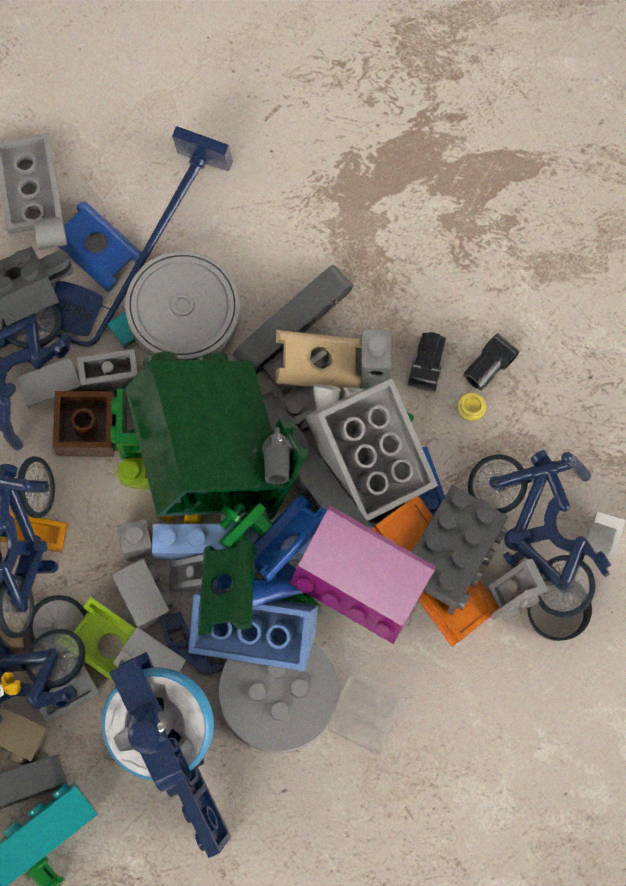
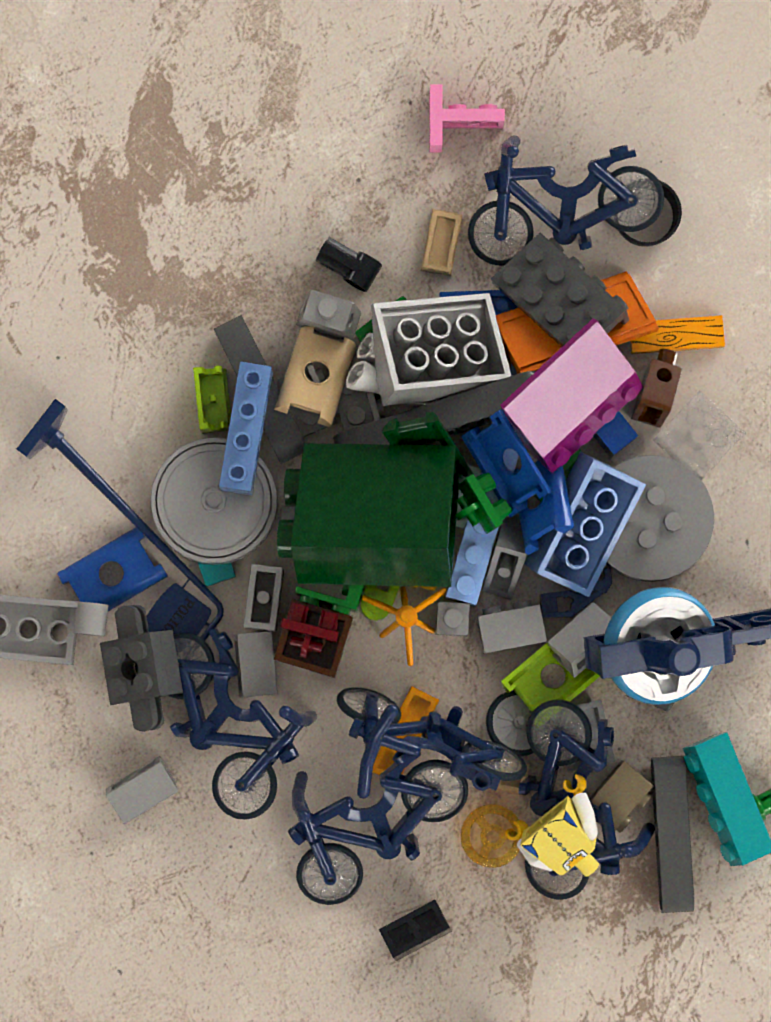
camera: 75 degrees left, 10 degrees up
(91, 423) = (296, 622): none -> dark red hips
(124, 495) = (406, 617): none -> light orange plant
(238, 601) = (566, 530): dark green piece -> none
(251, 309) = (246, 428): none -> medium blue brick
(272, 282) = (212, 399): none -> lime hinge
(276, 457) = (424, 446): dark grey piece -> none
(345, 636) = (615, 435): none -> blue brick
(387, 662) = (659, 389): none -> reddish brown torso
(456, 674) = (682, 335): none -> light orange tile
(471, 407) = (408, 233): light yellow plate -> none
(473, 438) = (441, 242): none -> tan tile
(495, 356) = (364, 192): black piece -> none
(517, 589) = (619, 247): light grey bracket -> none
(589, 417) = (458, 117): none -> bright pink bracket
(605, 533) = (583, 141): white panel -> none

